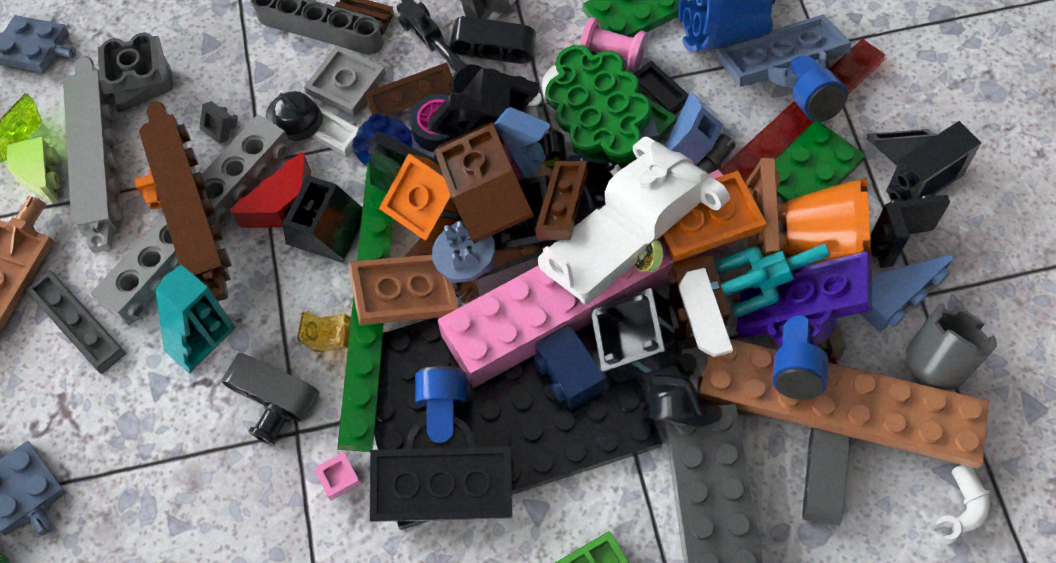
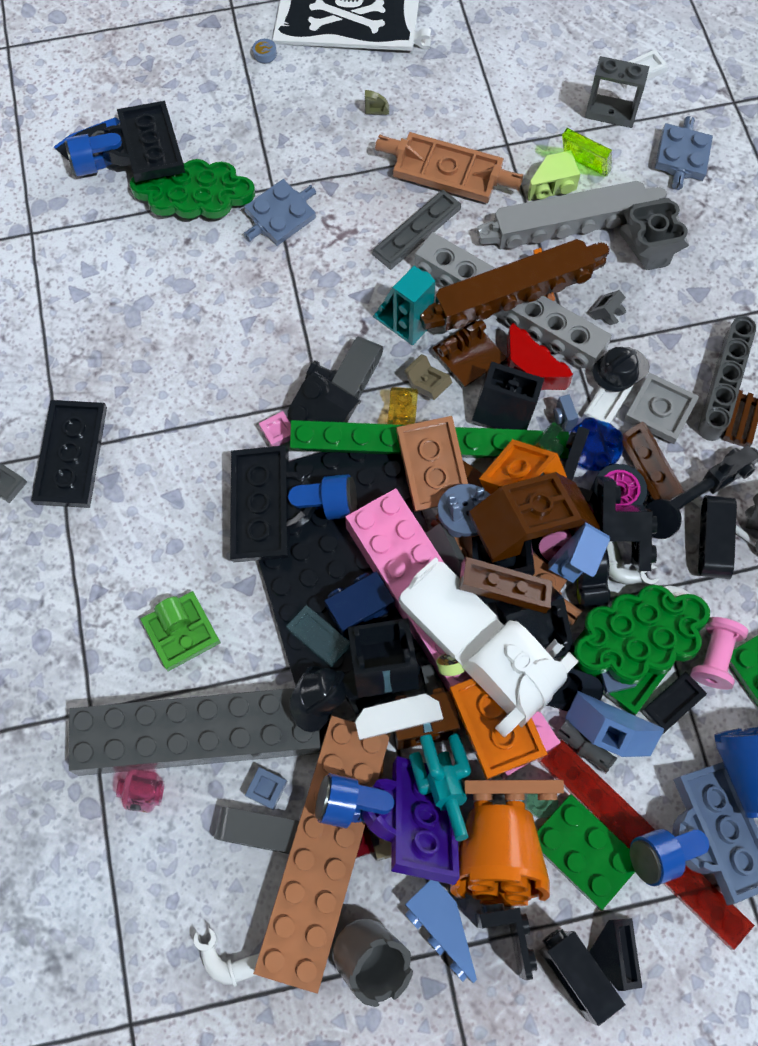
camera: 85 degrees right, 5 degrees up
(257, 263) = (469, 352): none -> reddish brown hinge
(287, 304) = (427, 379): none -> dark tan bracket
(312, 418) = (322, 401): none -> black slope
(344, 165) = (565, 413): none -> sand blue plate
(604, 415) = (318, 636): none -> clear light blue tile
(778, 471) = (266, 788): none -> sand blue plate

